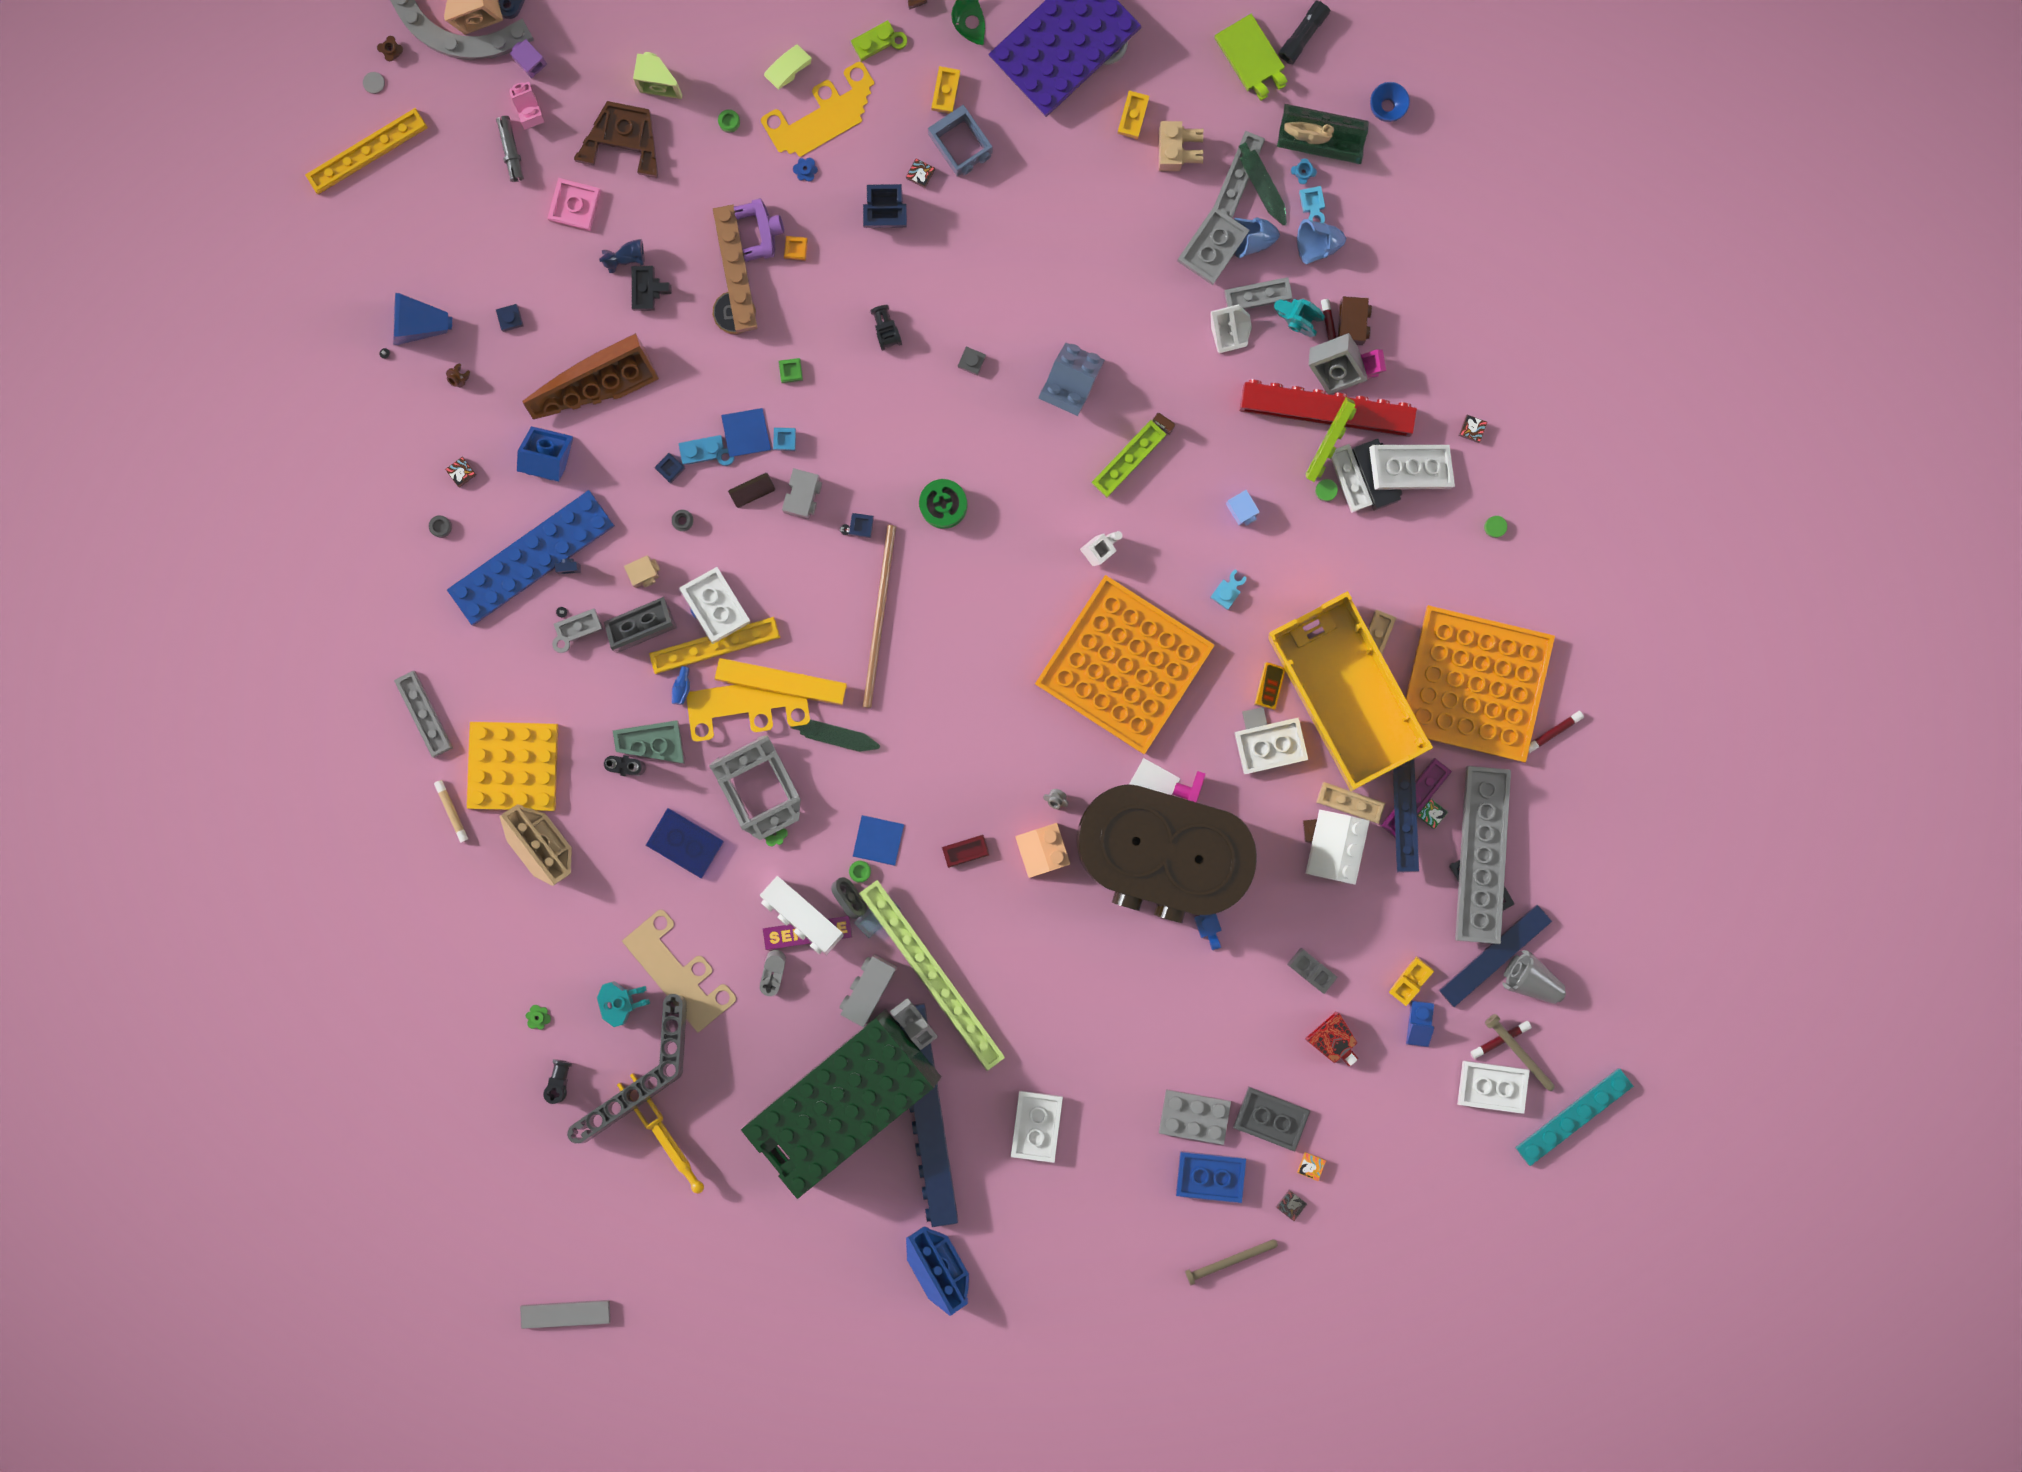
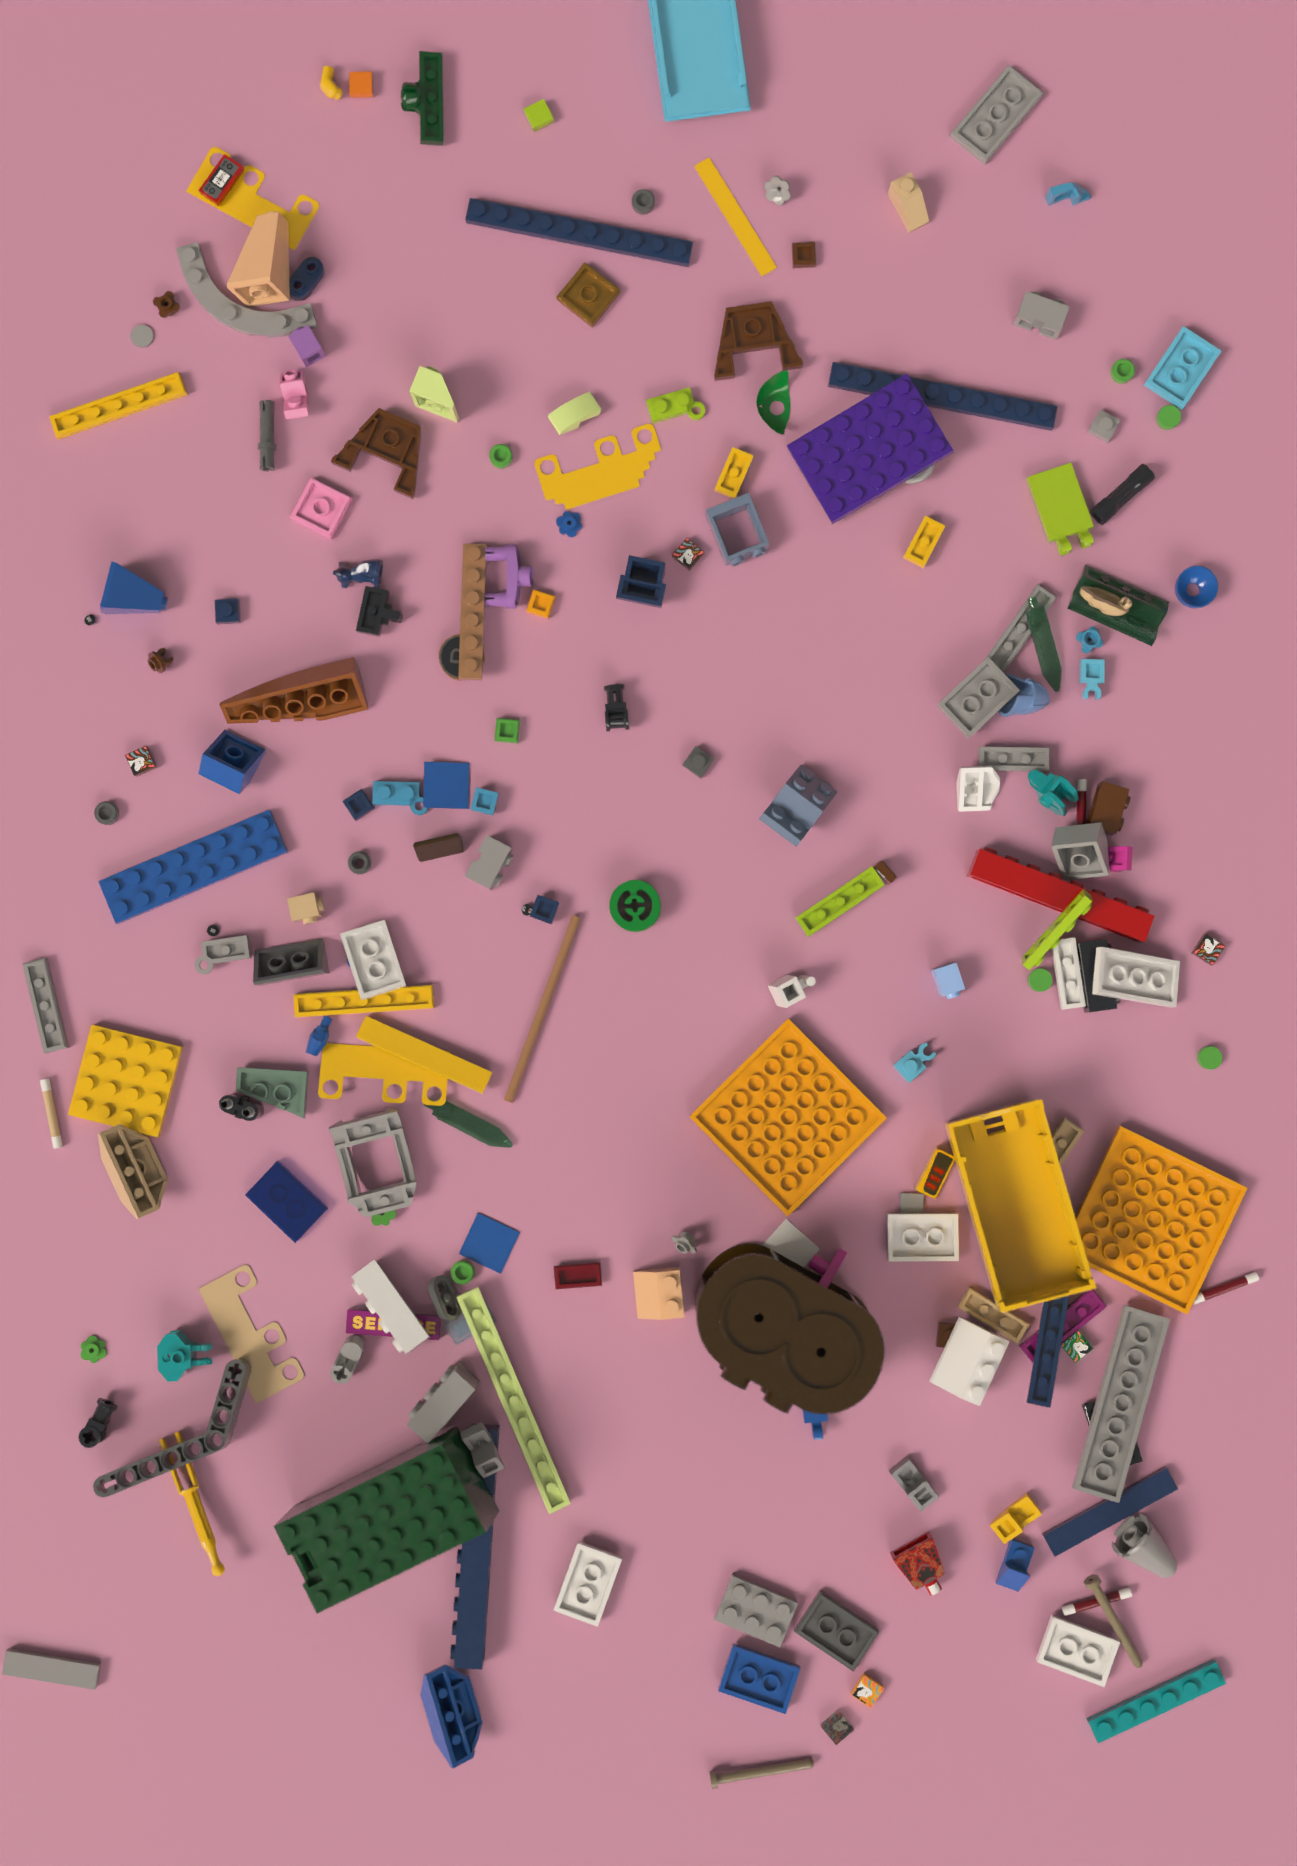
camera: 20 degrees right, 0 degrees up
(567, 566) = (229, 885): dark blue plate -> none
(1171, 138) = (956, 581): tan brick -> none
(1318, 240) = (1089, 716): medium blue helmet -> none

